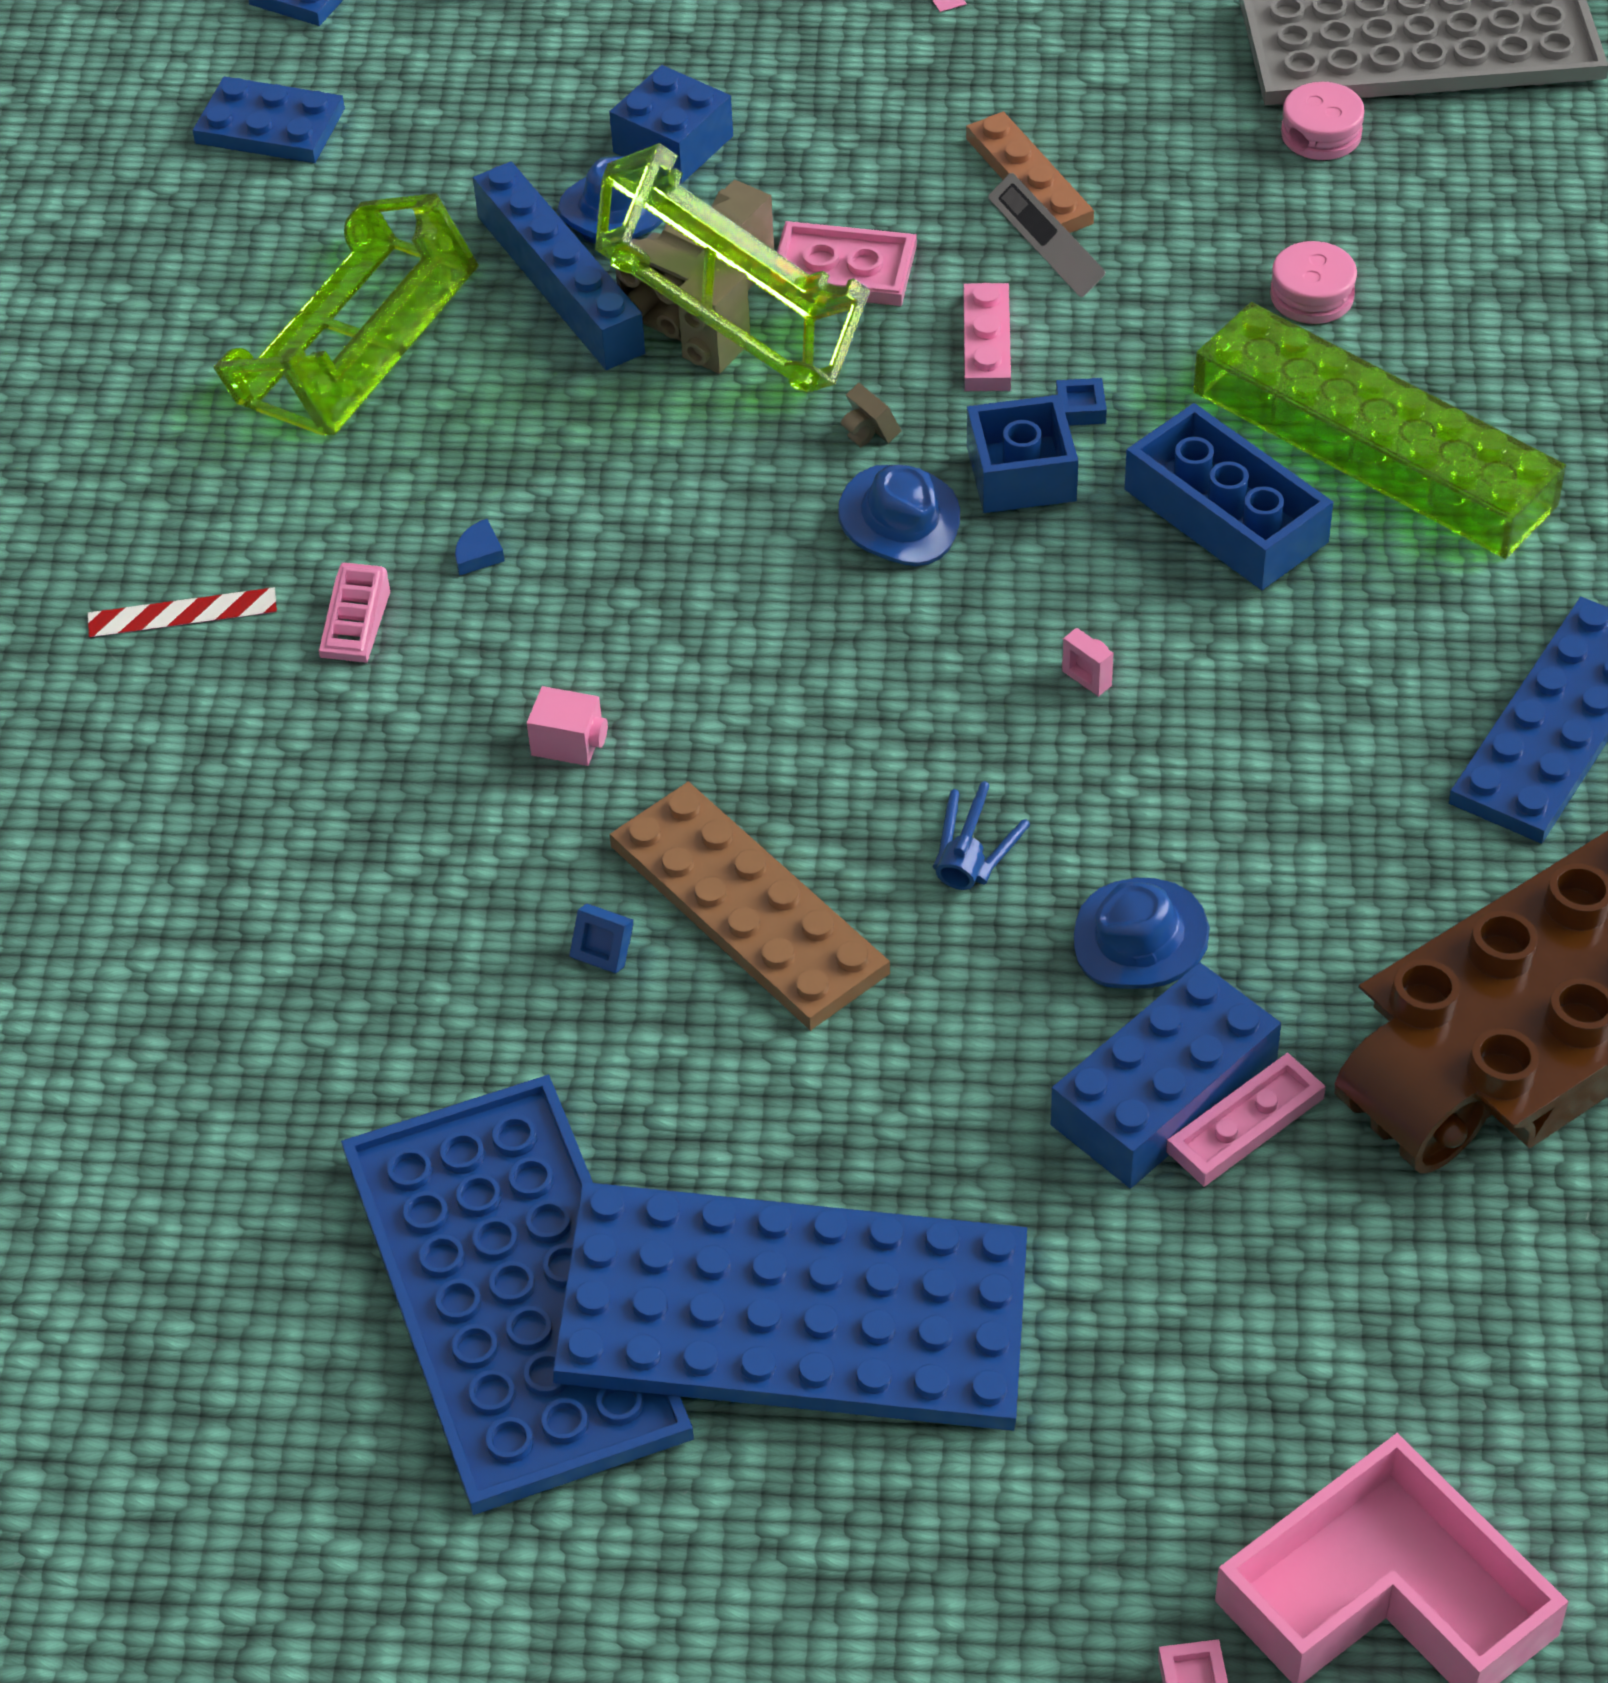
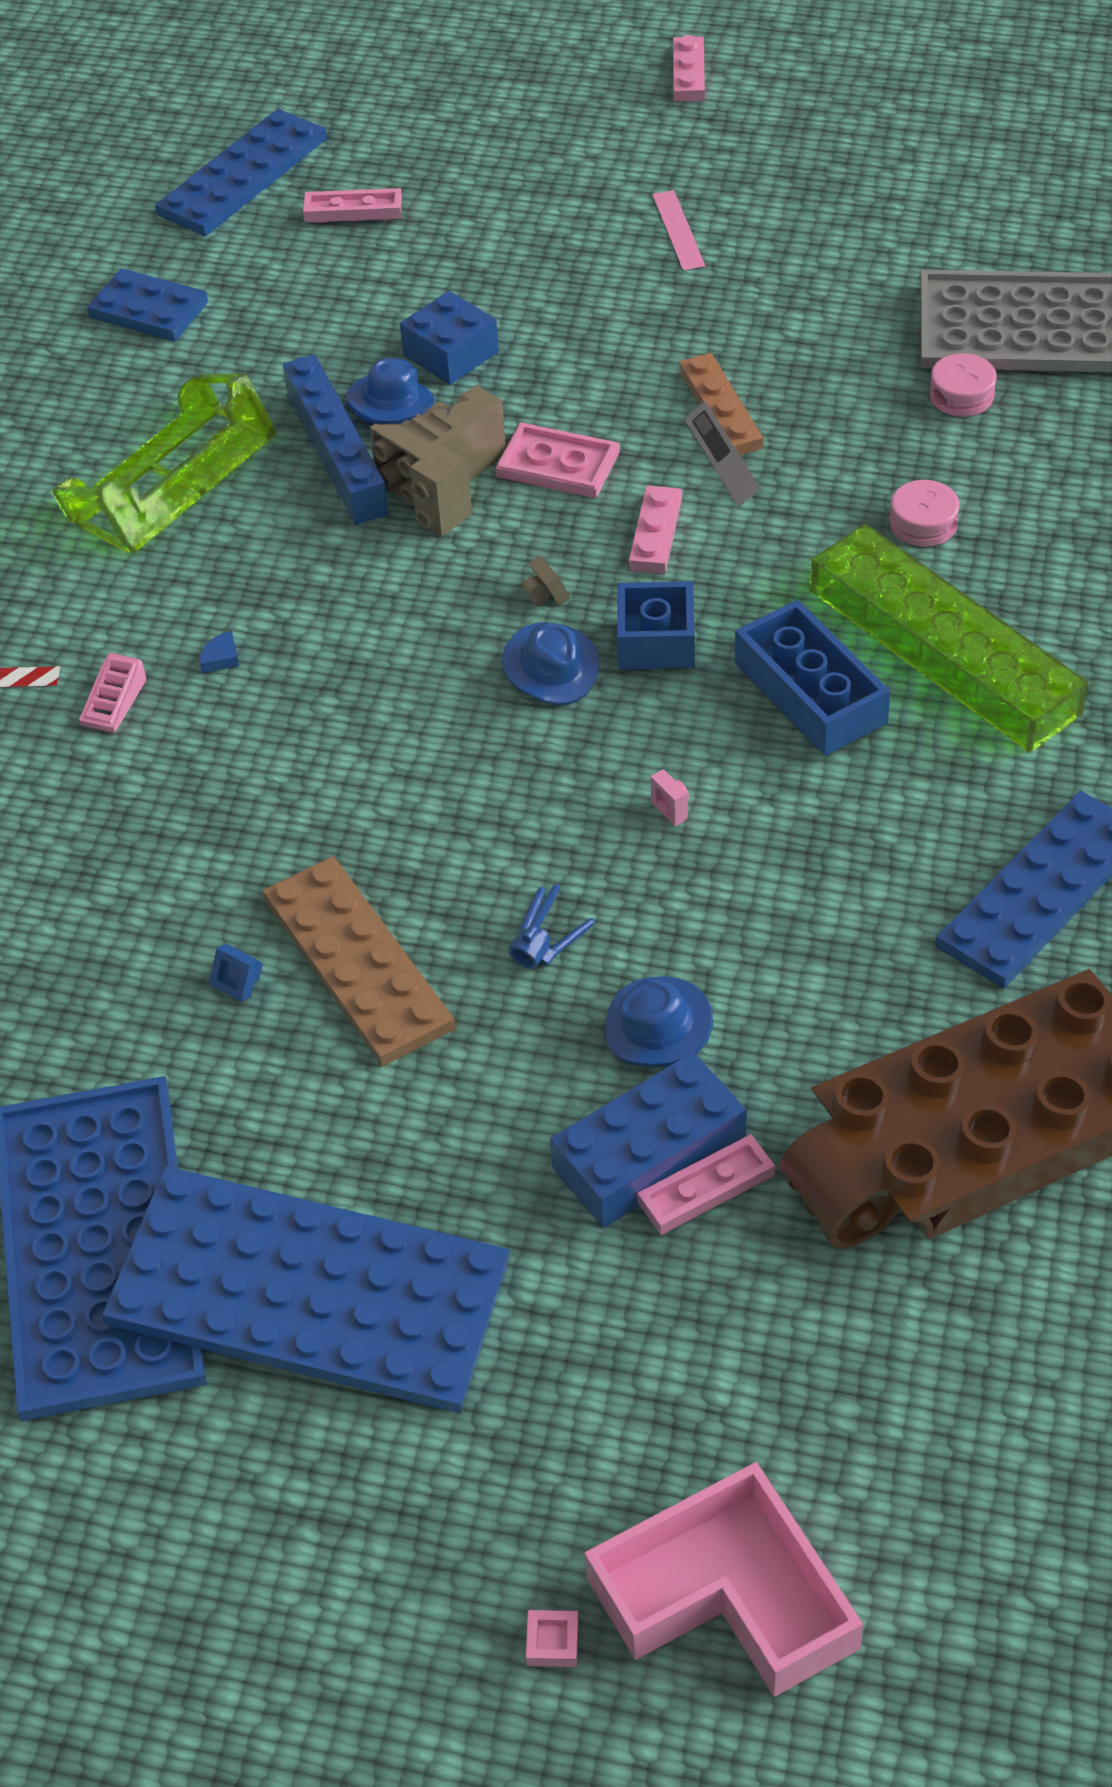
camera: 10 degrees right, 0 degrees up
(566, 726) = (249, 800): bright pink brick -> none
(654, 184) = (389, 376): clear neon green windscreen -> none
(1083, 400) = (717, 589): blue tile -> none

